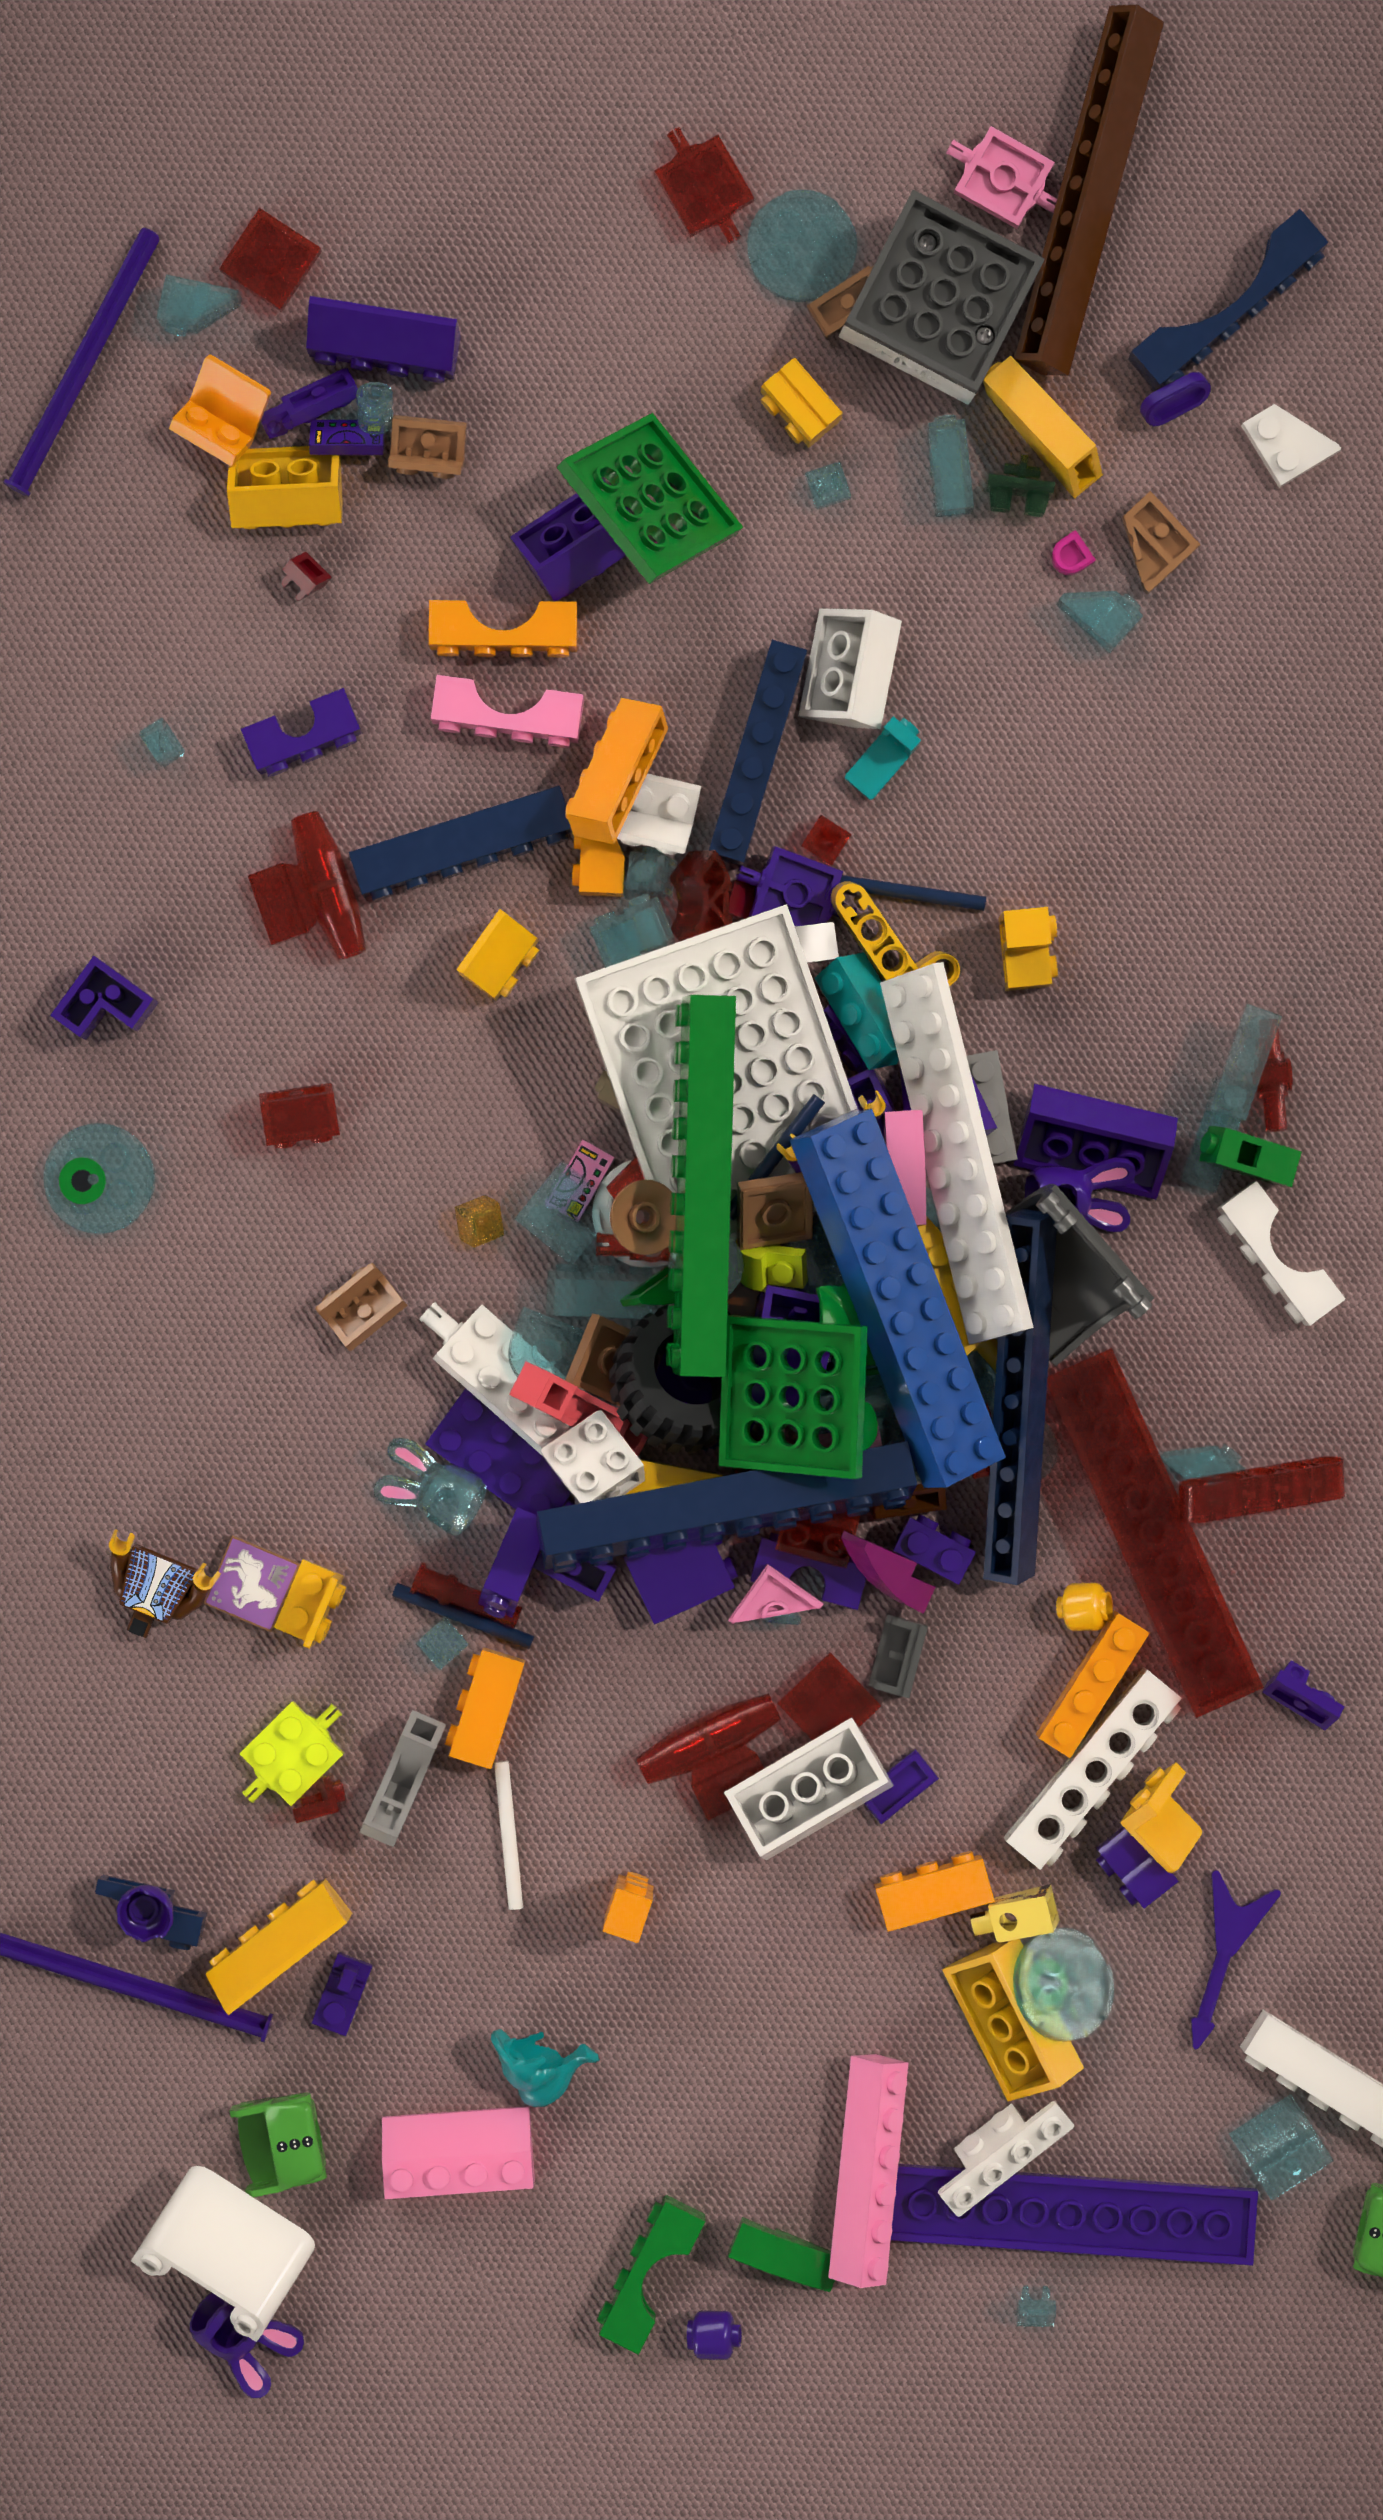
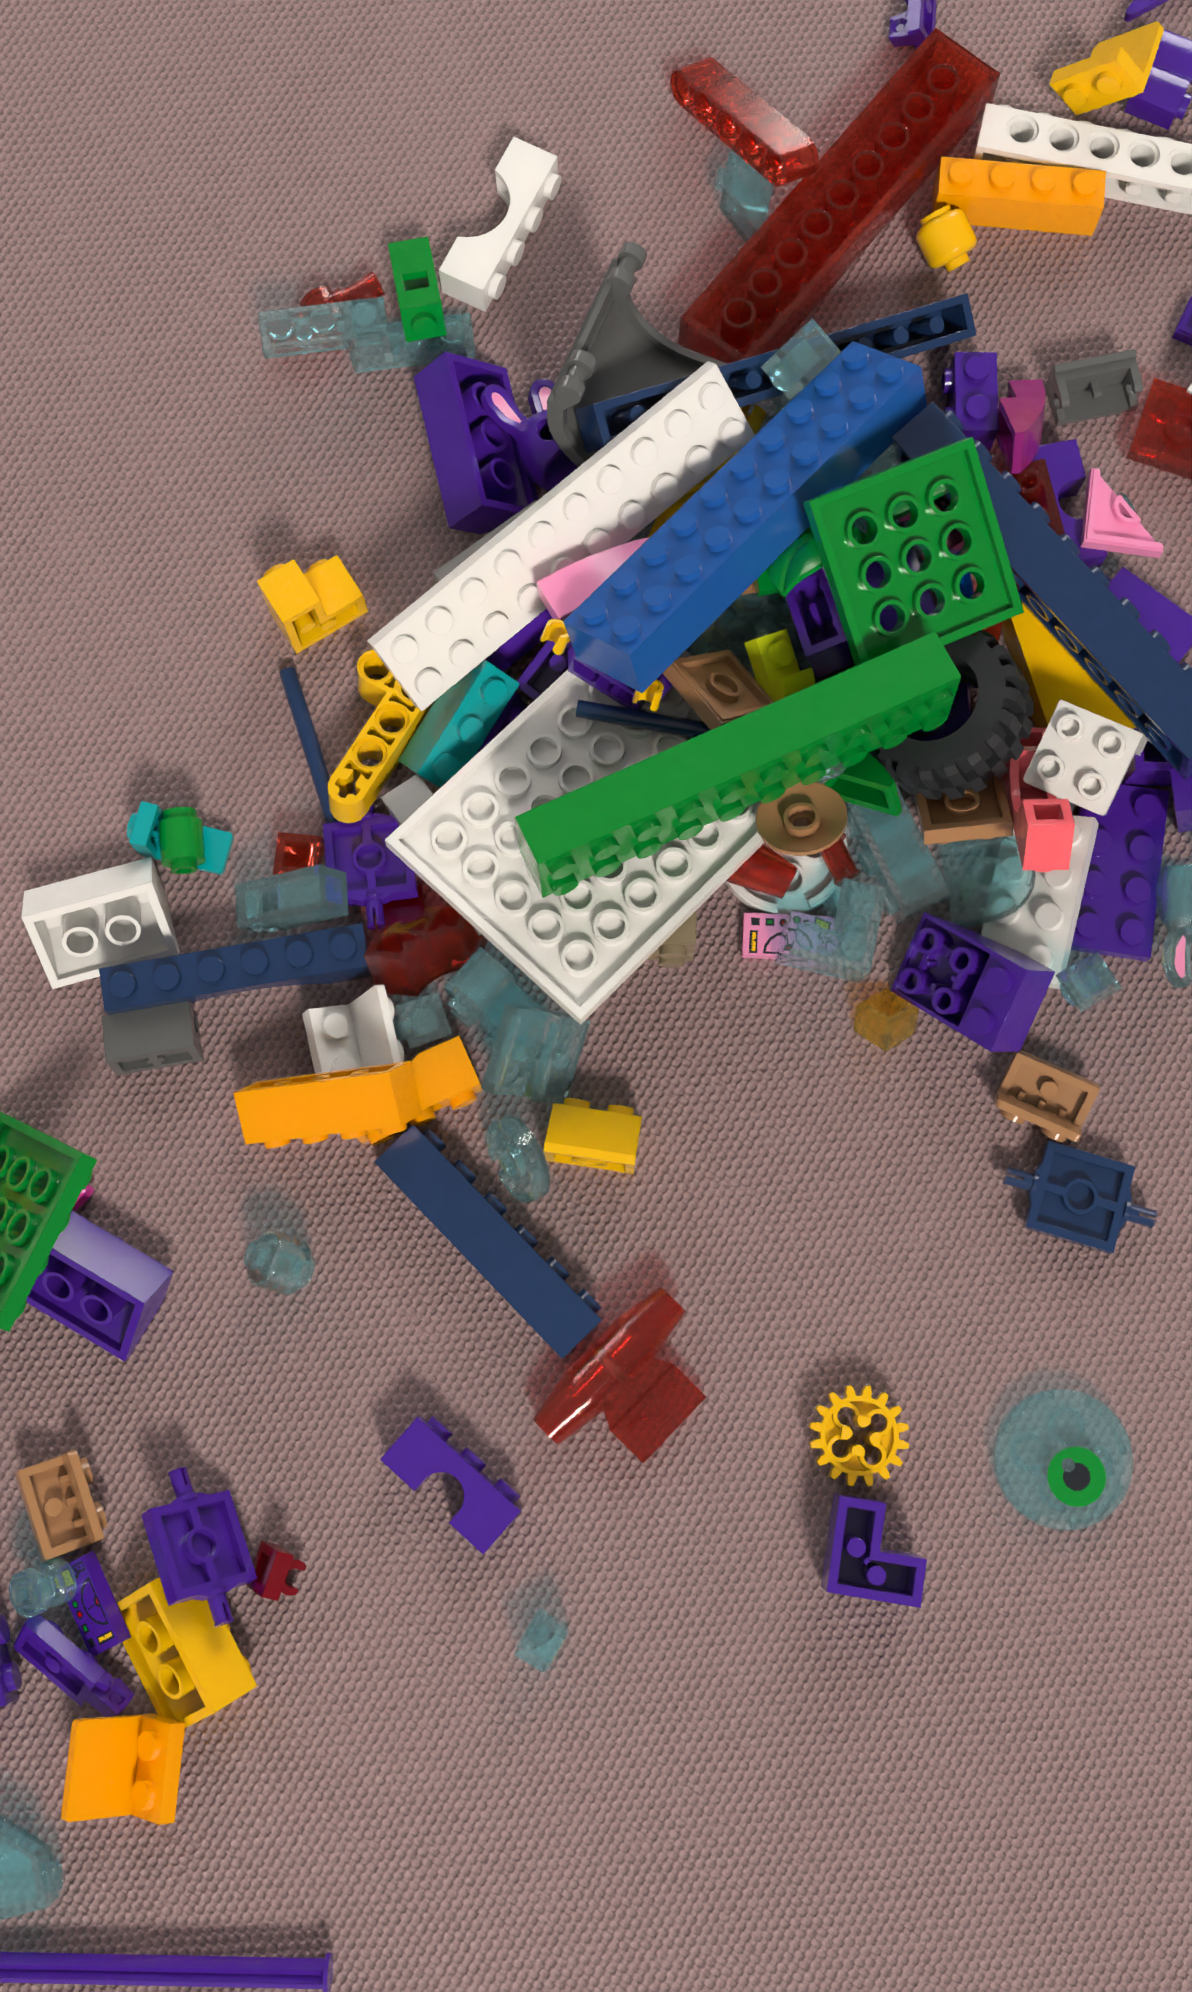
camera: 115 degrees left, 10 degrees down
(202, 1022) = (853, 1461): none -> yellow gear
(276, 1291) = (1079, 1197): none -> dark blue plate
(299, 1115) = (877, 1267): clear red brick -> none
(346, 531) = (199, 1547): none -> dark purple plate
(427, 1382) = (1087, 982): none -> clear light blue plate
(469, 1293) = (972, 983): none -> dark purple slope
(505, 893) = (521, 1158): none -> clear light blue tile
(521, 682) = (279, 1262): none -> clear light blue head
(549, 629) = (253, 1366): light orange arch -> none
(552, 718) = (337, 1319): bright pink arch -> none
(579, 939) = (535, 1054): none -> clear light blue slope
(740, 666) = (151, 1038): none -> dark grey hinge
(789, 818) = (292, 899): none -> clear light blue brick
(879, 757) = (181, 840): none -> green brick
(1004, 1403) = (801, 359): none -> clear light blue brick

